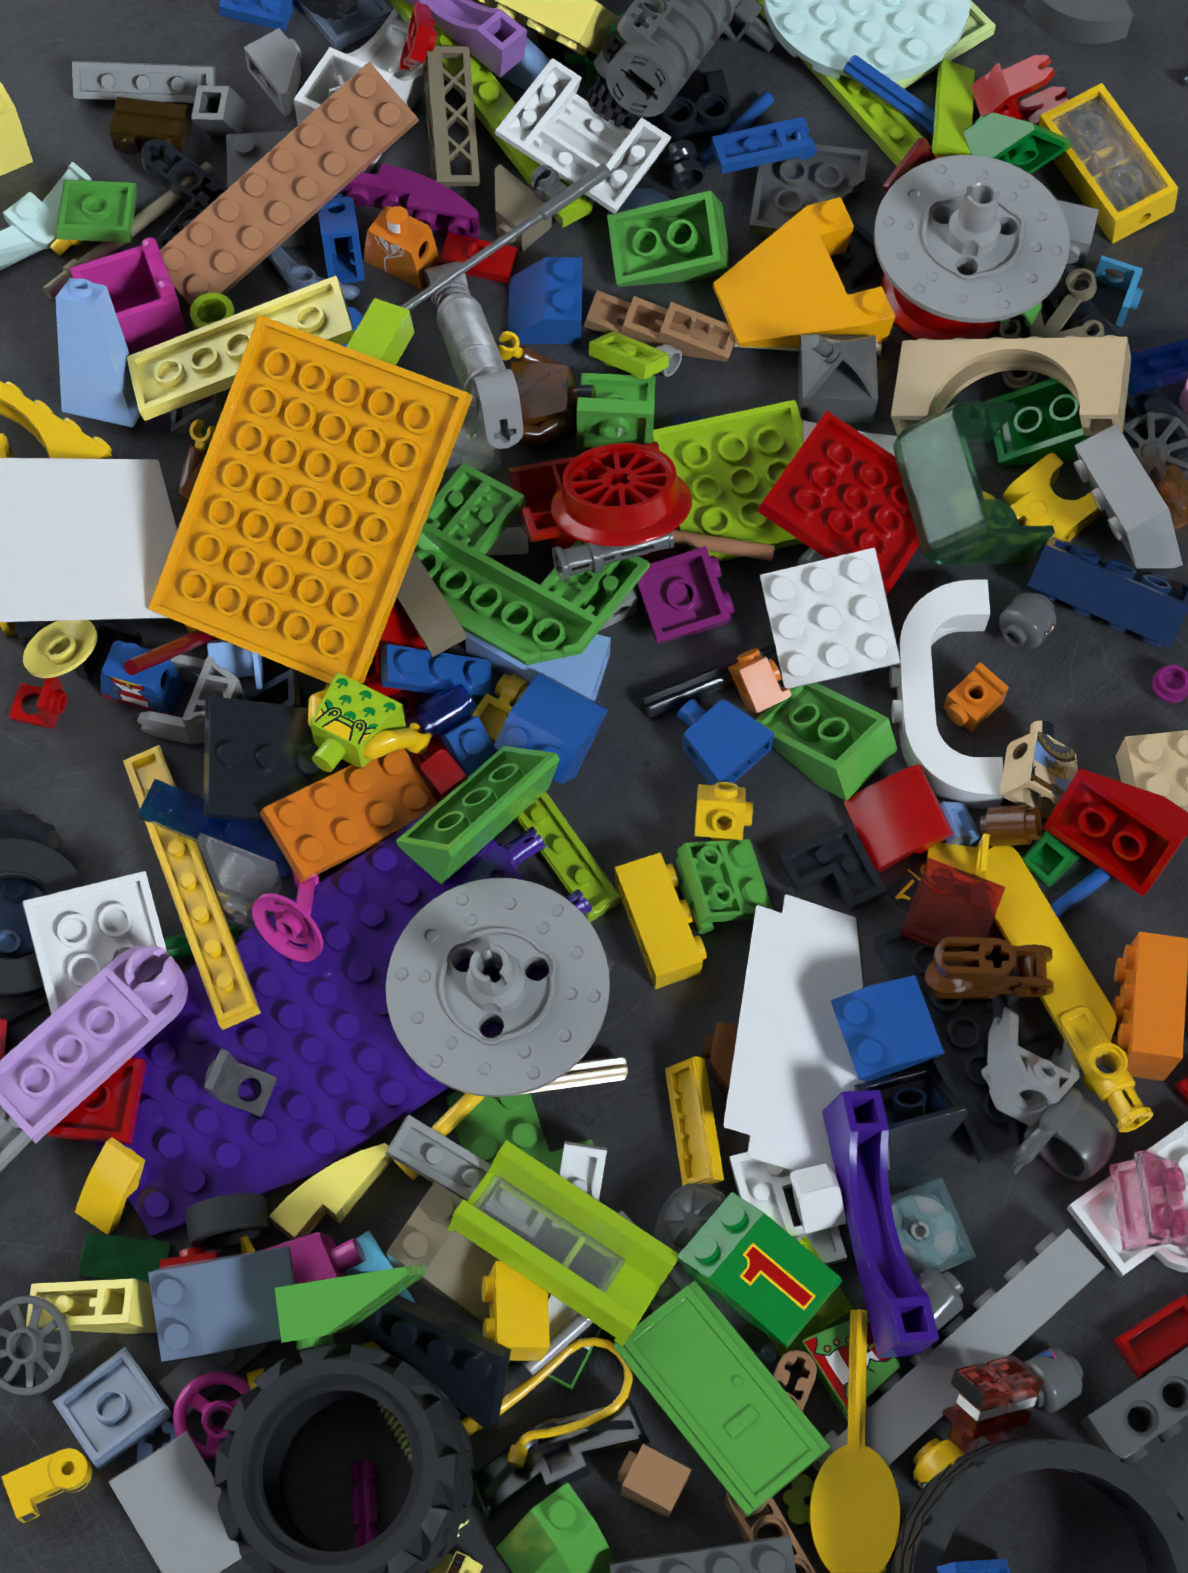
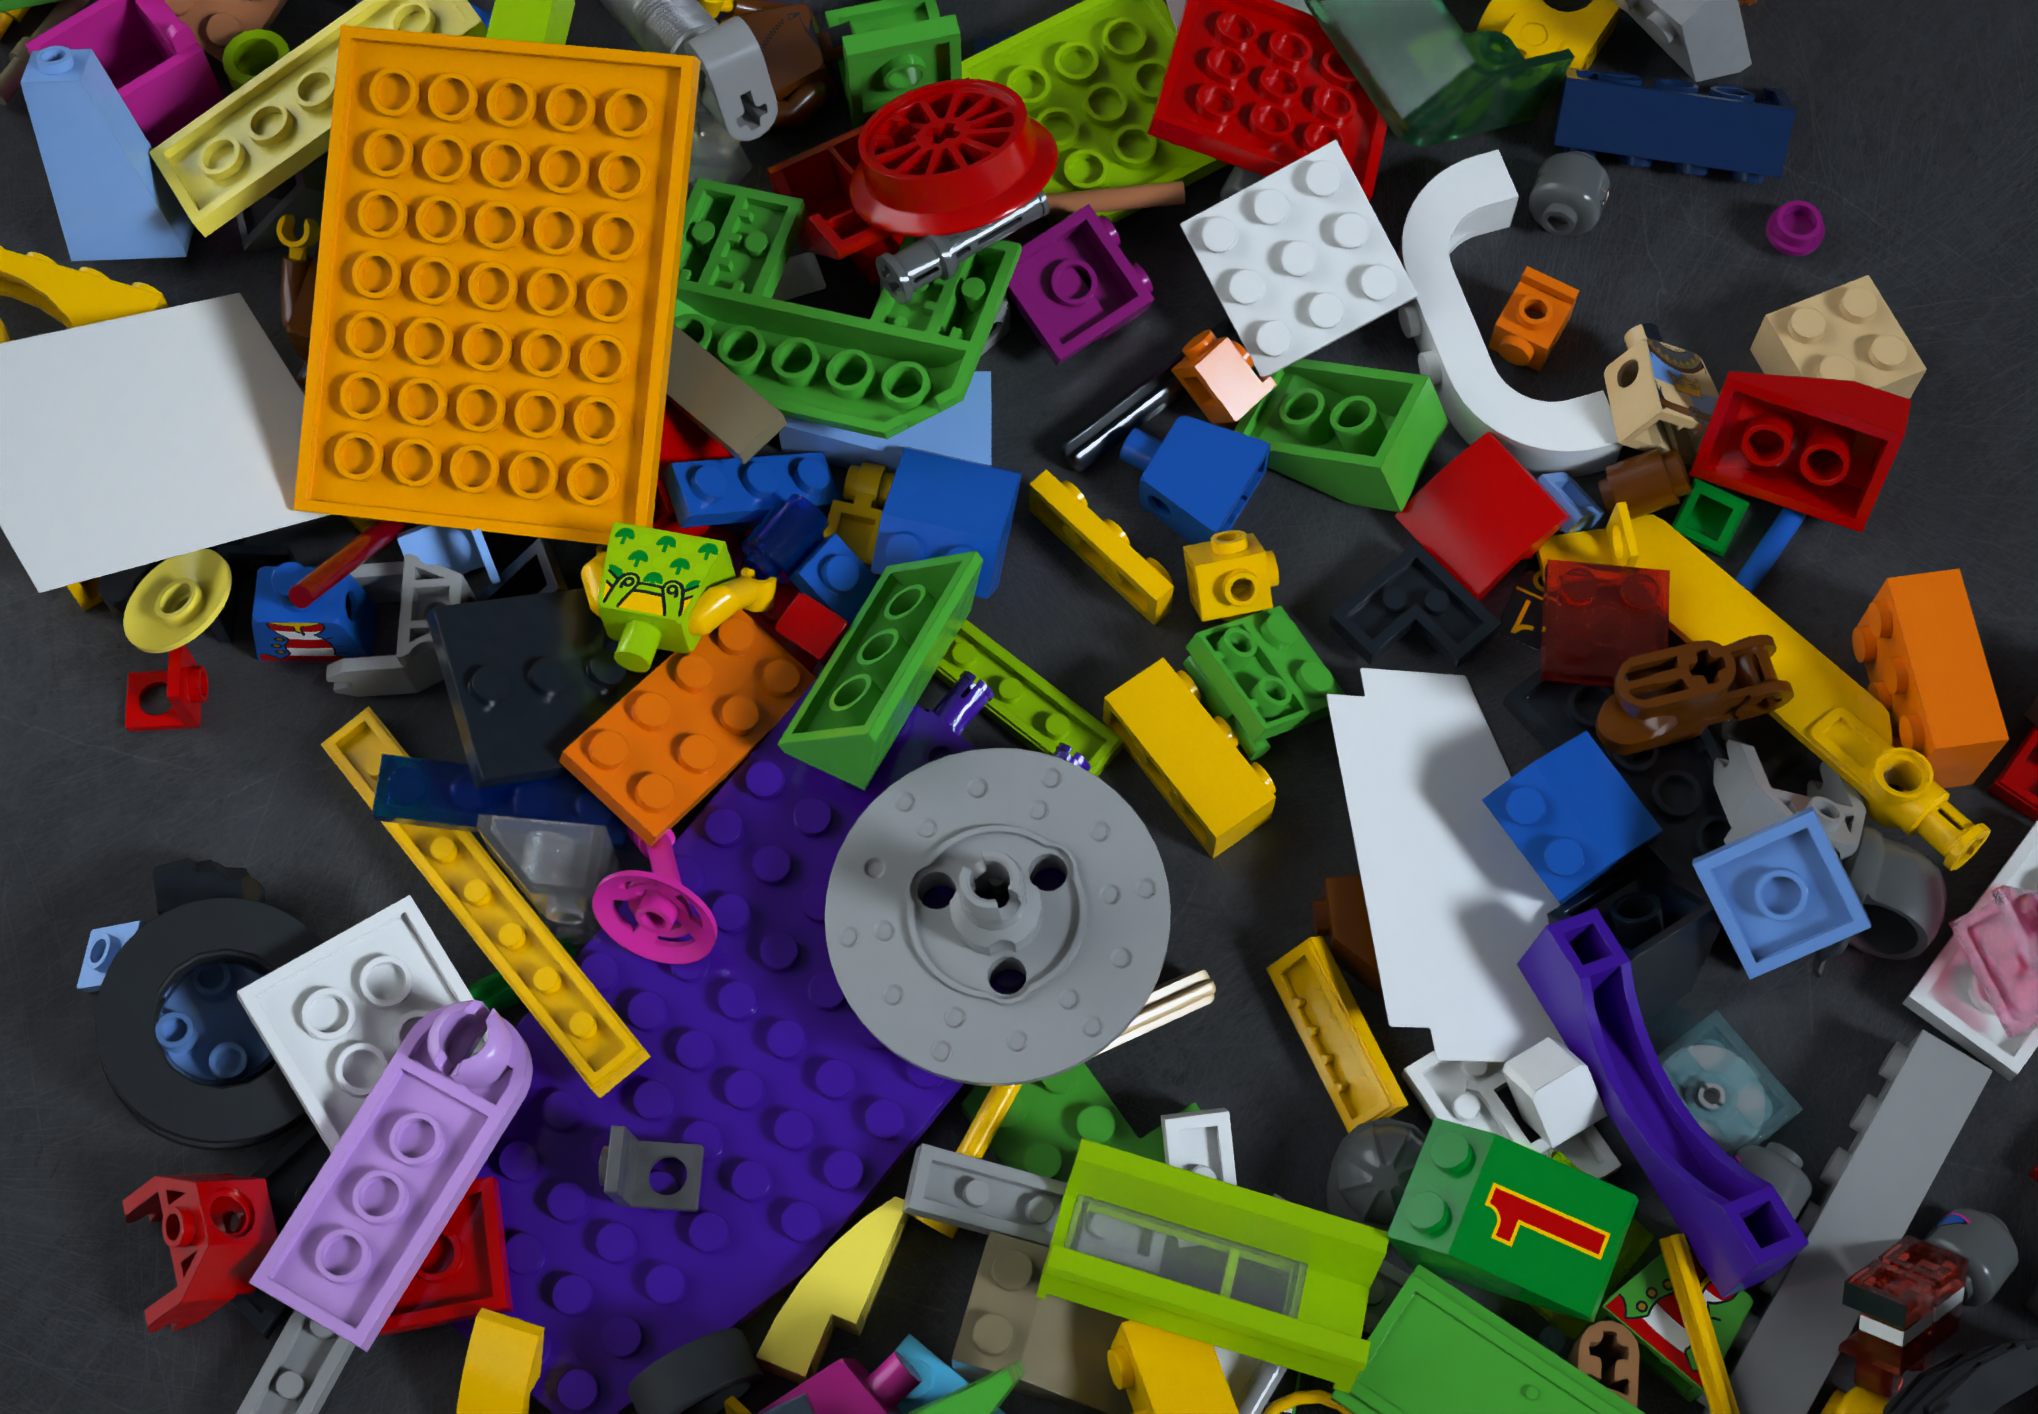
camera: 15 degrees left, 0 degrees up
(647, 769) = (1101, 546): none -> yellow plate
(999, 1114) = (1781, 893): none -> medium blue plate

